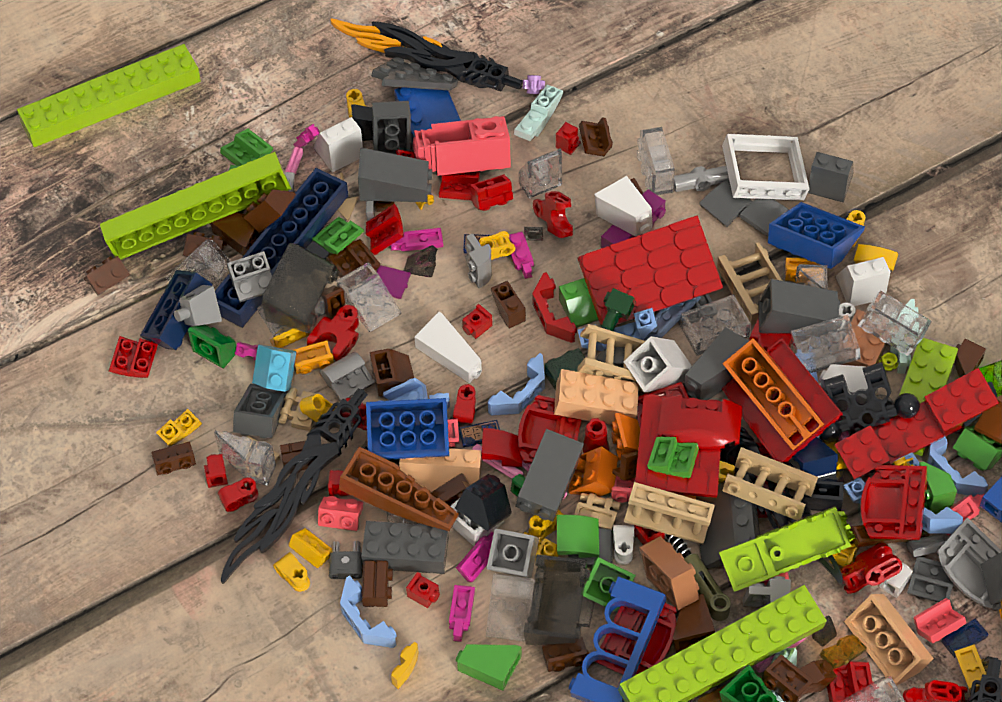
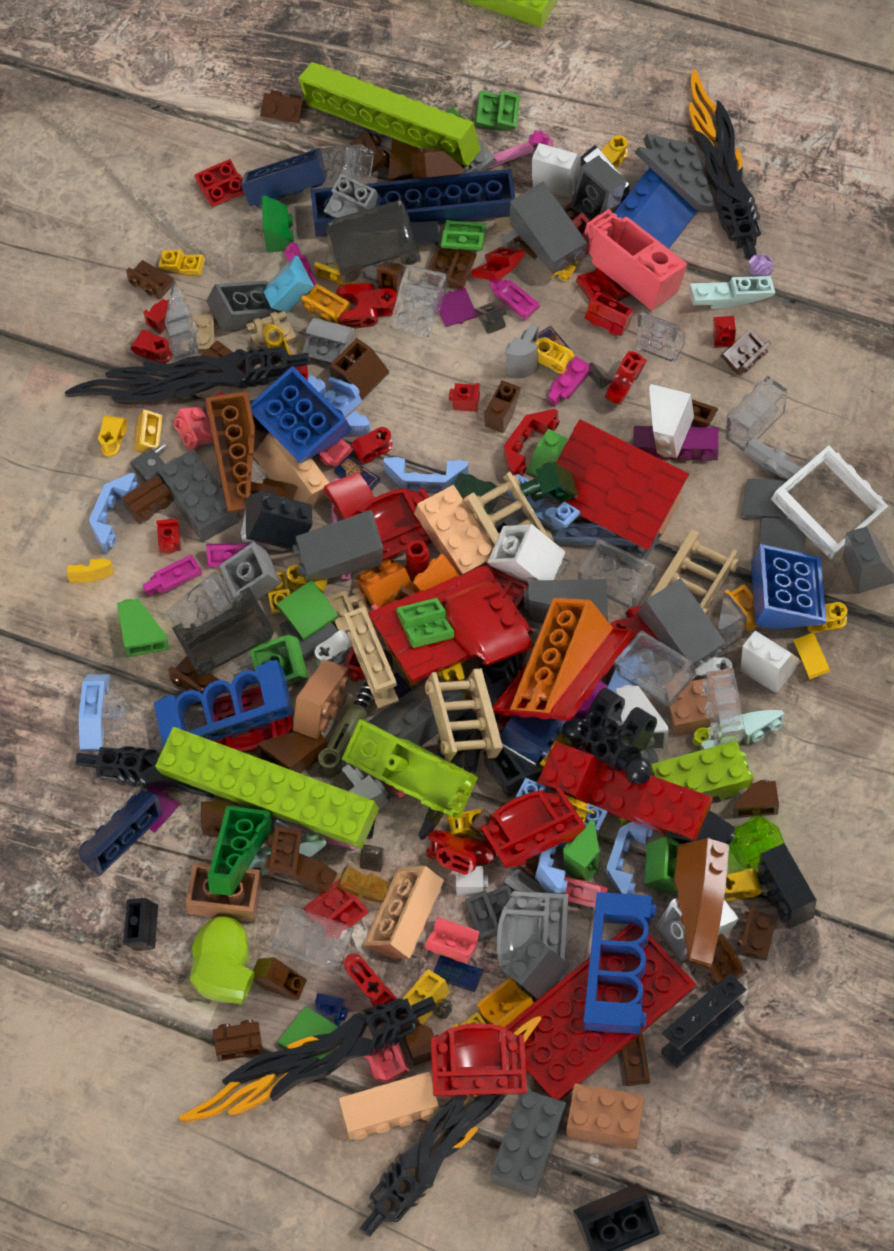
camera: 55 degrees right, 5 degrees up
(199, 307) = (291, 188): light grey torso -> none
(448, 348) = (421, 391): white slope -> none

